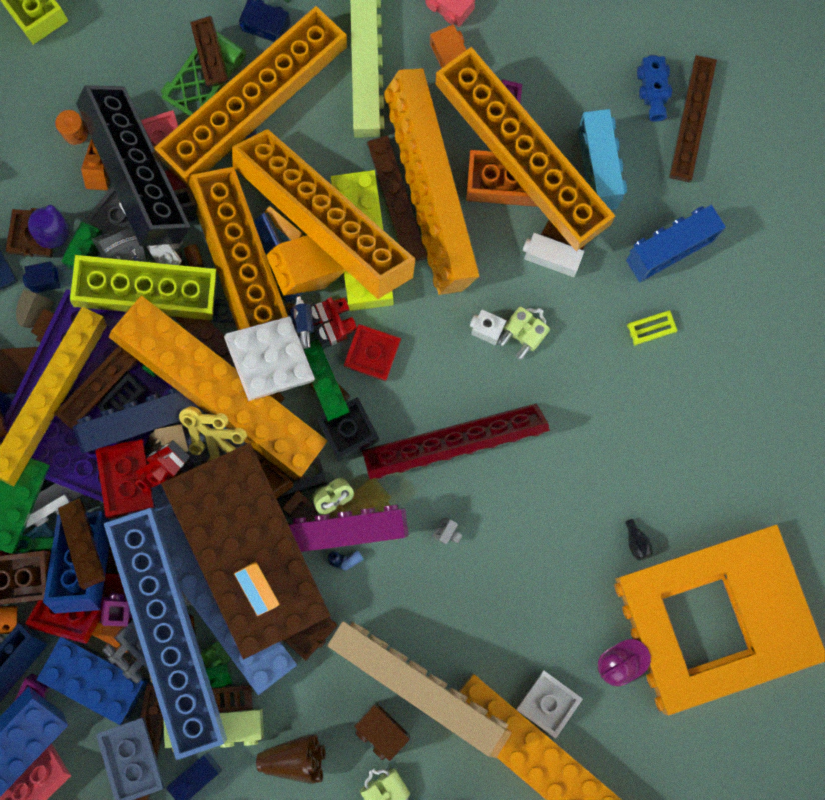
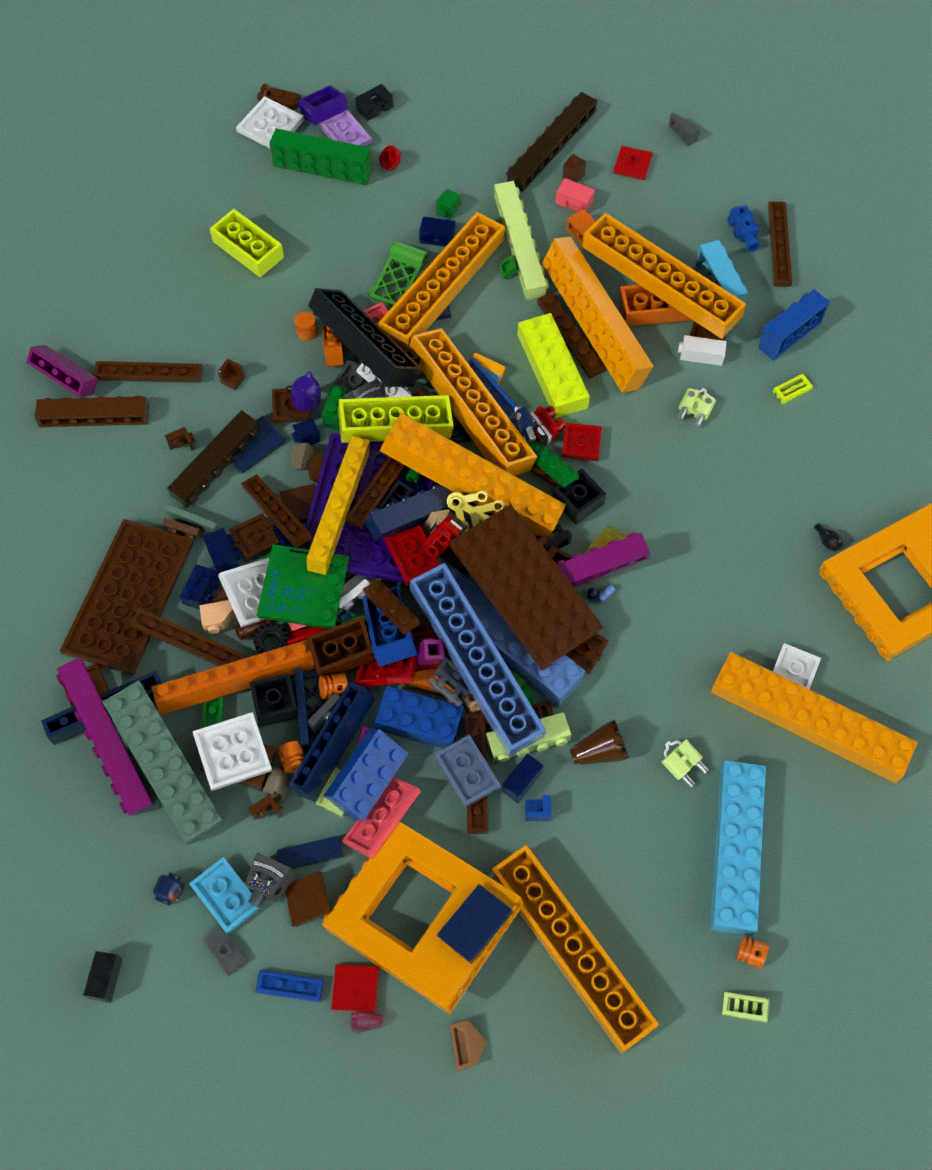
camera: 10 degrees left, 15 degrees down
(209, 51) = (402, 256): reddish brown tile -> none
(256, 588) = (544, 608): slope -> none
(269, 358) = (507, 448): white plate -> none
(303, 266) = (517, 382): light orange slope -> none
(323, 213) = (523, 342): light orange brick -> none
(333, 495) = (581, 542): yellowish green piece -> none
(341, 89) = (508, 267): none -> green plate
(381, 732) = (668, 709): reddish brown brick -> none
(423, 692) = (692, 663): tan brick -> none
(447, 532) = (677, 557): light grey tile -> none
(454, 441) = (661, 491): dark red plate -> none
(487, 326) = (666, 407): white brick -> none
(624, 662) = (845, 625): magenta piece -> none

